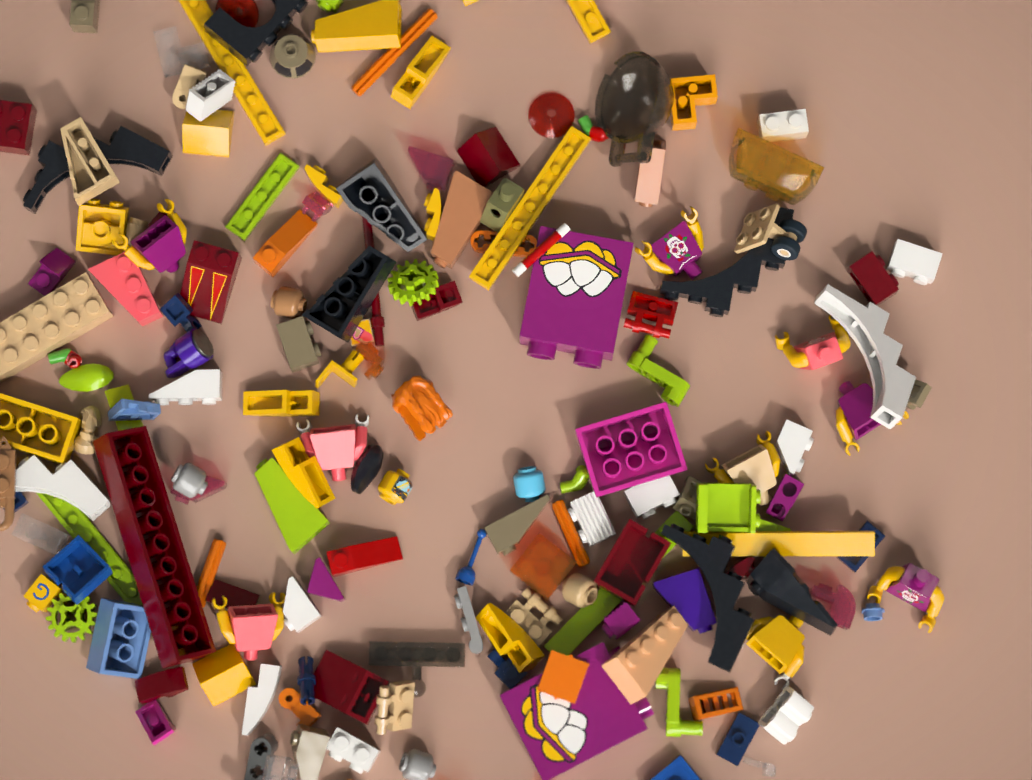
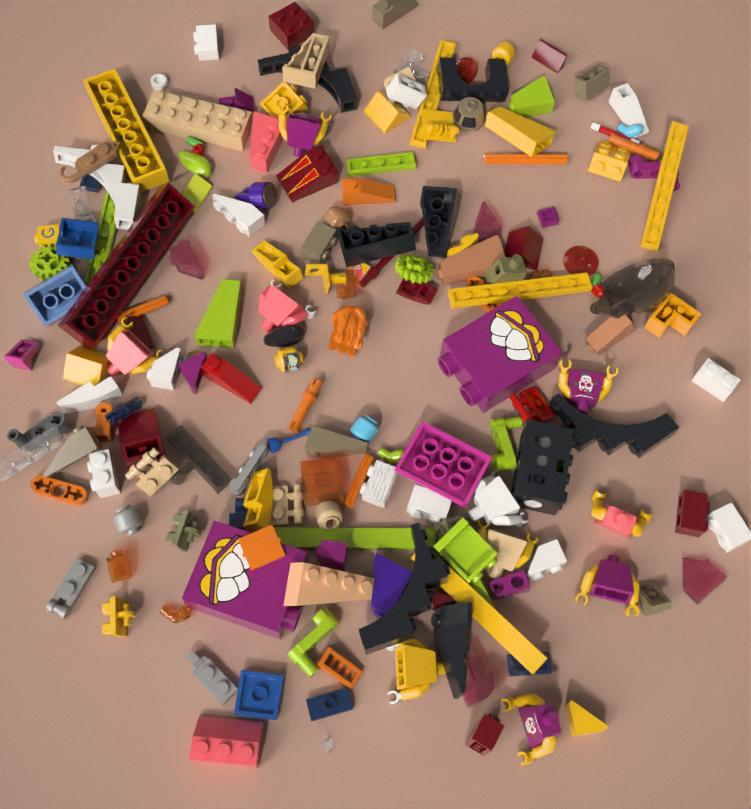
camera: 40 degrees right, 15 degrees down
(90, 421) = (175, 180): tan arm -> none
(133, 410) = (197, 192): medium blue wing -> none
(160, 684) = (51, 338): dark red slope -> none
(179, 312) = (275, 173): dark blue plate -> none
(189, 480) = (183, 247): light grey head -> none
(276, 99) = (439, 125): none -> yellow hinge
(304, 472) = (247, 302): yellow slope -> none
(317, 204) = (405, 190): clear pink tile -> none
(319, 181) = (418, 183): yellow slope -> none
(420, 72) = (529, 178): yellow slope -> none
(453, 512) = (308, 399): none -> orange pin
(476, 724) = (185, 532): none -> olive hips
(477, 97) = (548, 217): none -> magenta tile
(531, 167) = (539, 274): none -> clear orange arm
(541, 249) = (503, 306): red bar -> none
(631, 563) = (375, 527): dark red piece -> none
(706, 439) = (495, 503): none -> white torso
(714, 366) = (543, 467): none -> black piece
(761, 226) = (658, 436): tan plate -> none
(772, 168) = (689, 395): clear yellow windscreen -> none
(786, 715) = (374, 720): white brick -> none
(866, 327) = (661, 532): white arch -> none
(873, 612) = (496, 710): medium blue plate -> none
(882, 640) = (485, 734): none -> dark red brick
(929, 331) = (700, 578): none -> clear pink slope
(944, 551) = (581, 721): none -> yellow slope

